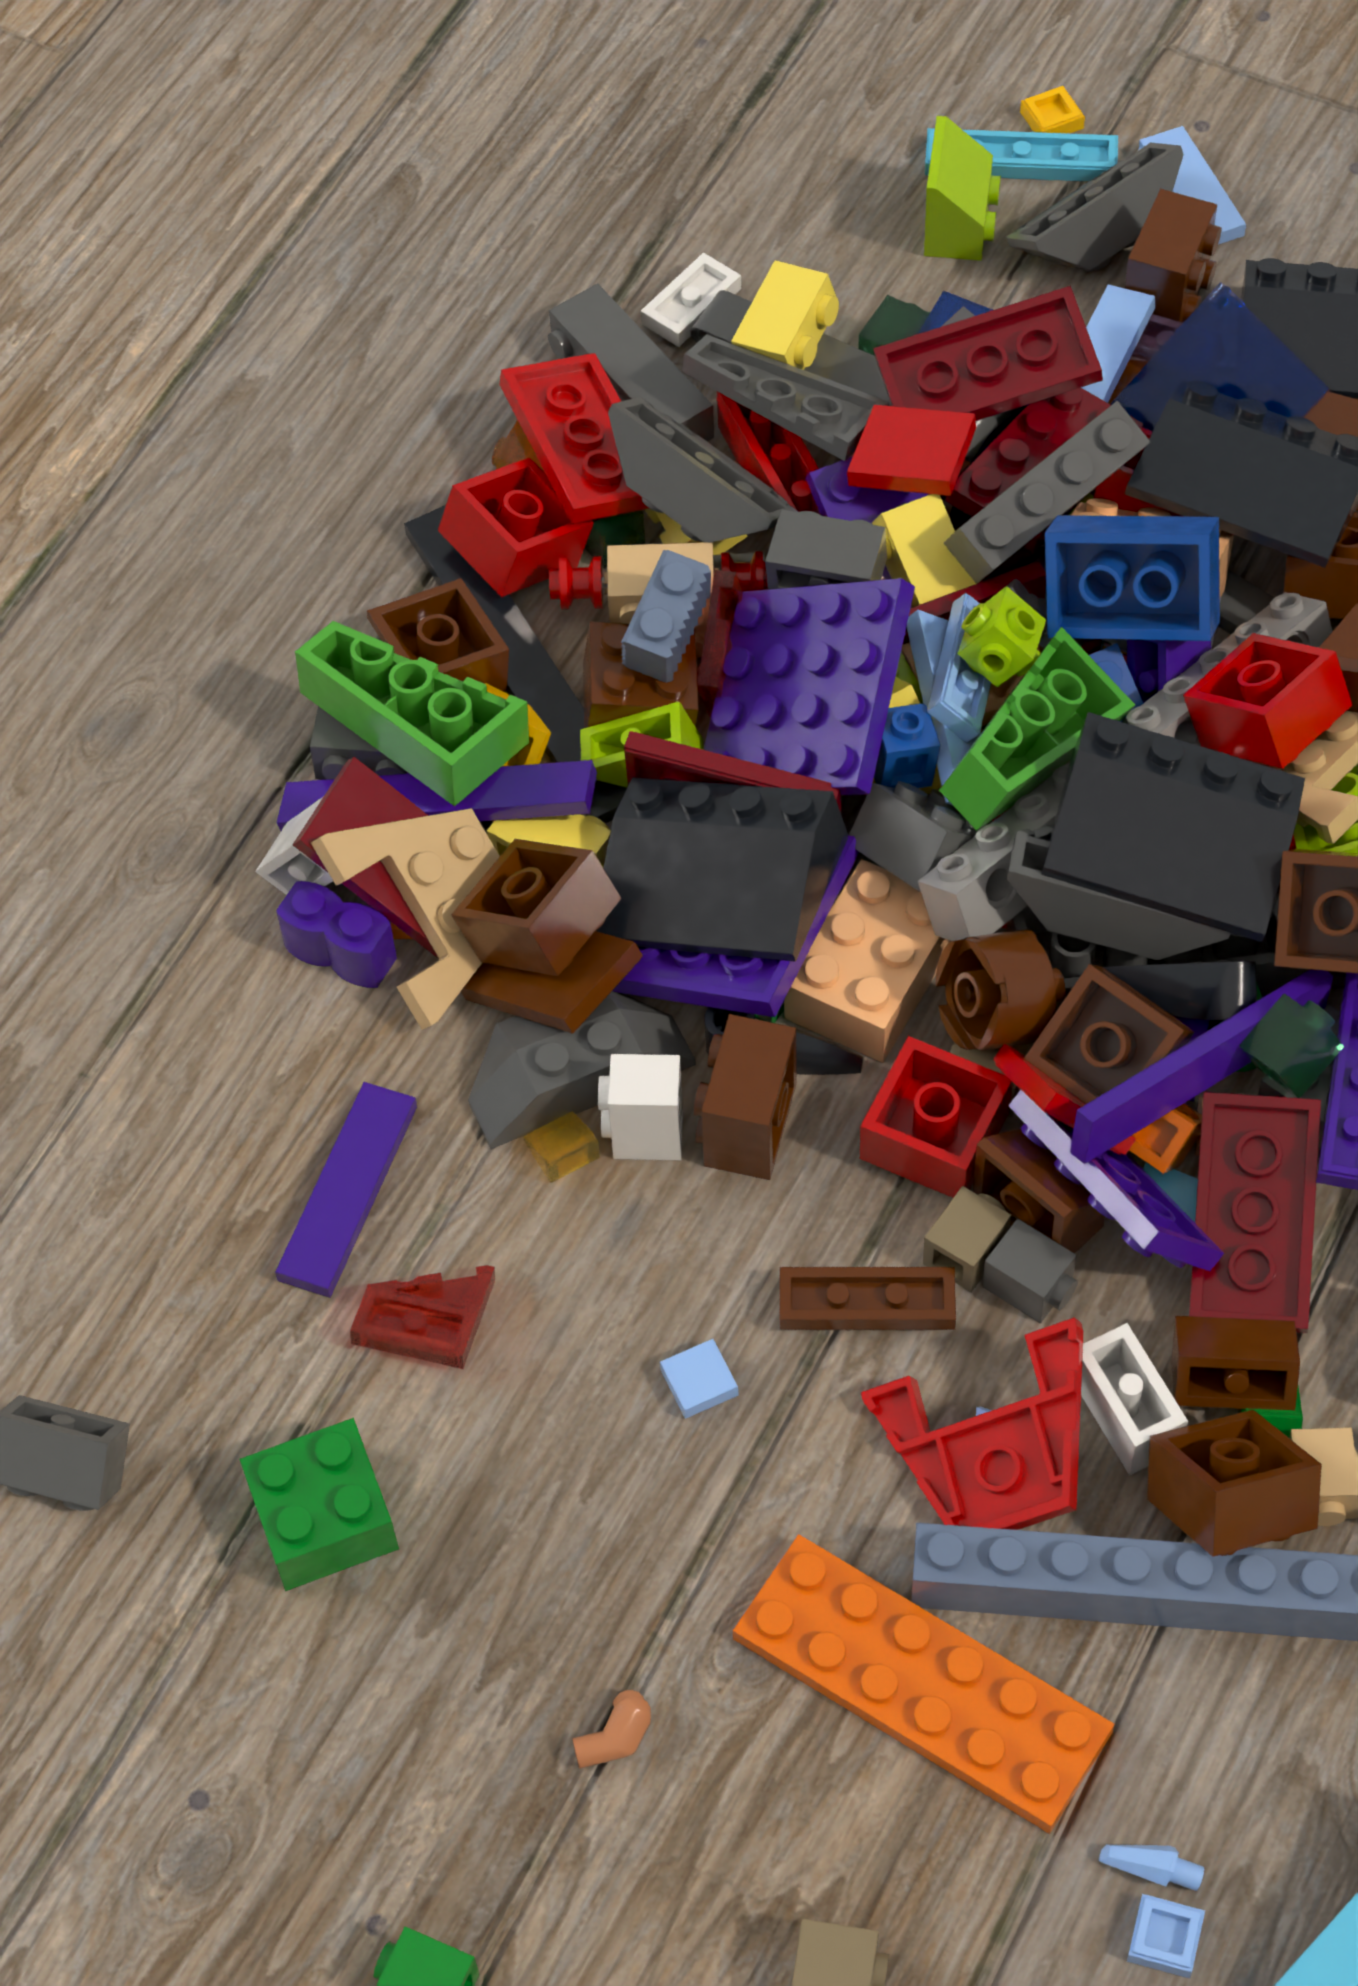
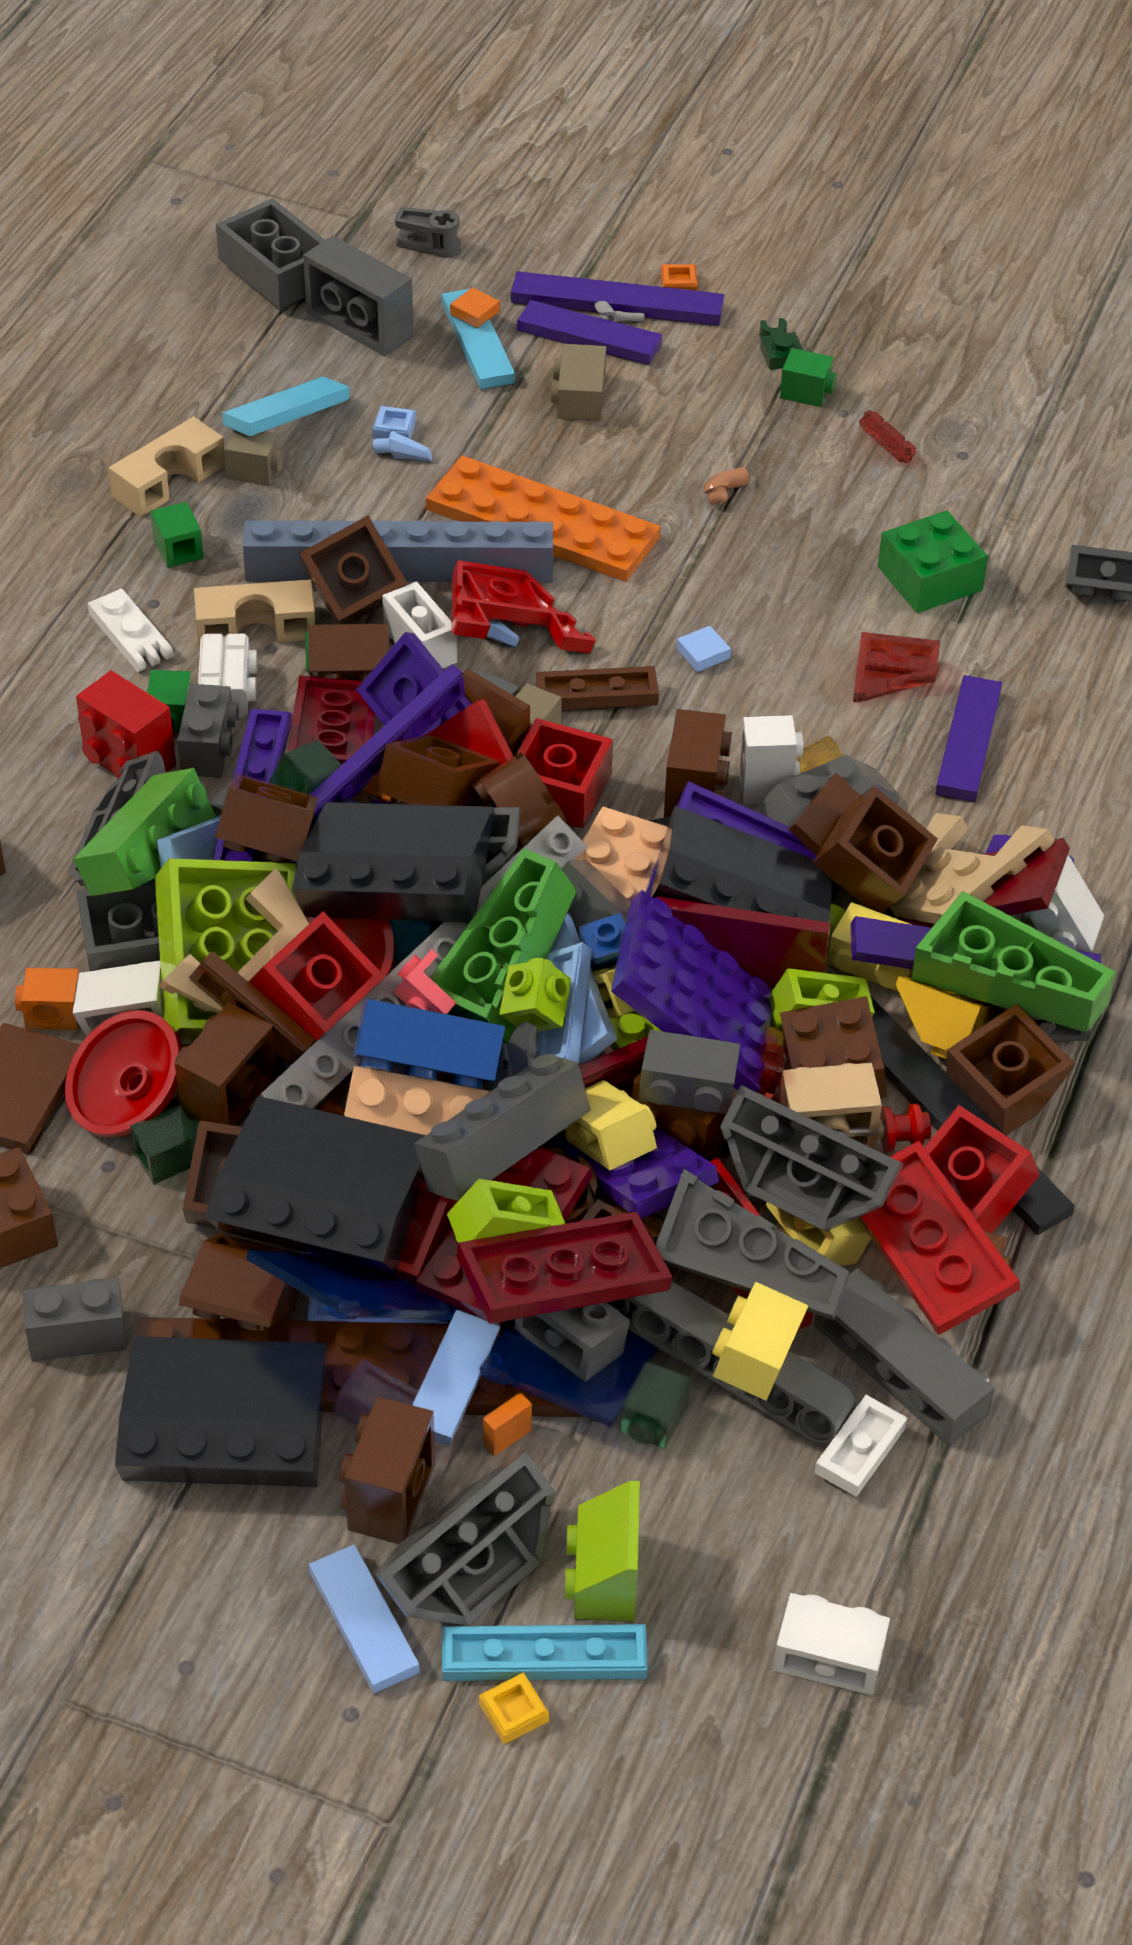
camera: 170 degrees right, 10 degrees down
(318, 1831) = (887, 436): none -> clear red axle
(666, 616) = (816, 1024): sand blue brick -> none
(754, 131) = (831, 1643): none -> white brick
(911, 450) = (626, 1167): red tile -> none
(1043, 412) = (502, 1209): none -> lime slope
(1139, 676) = (419, 990): none -> coral bracket

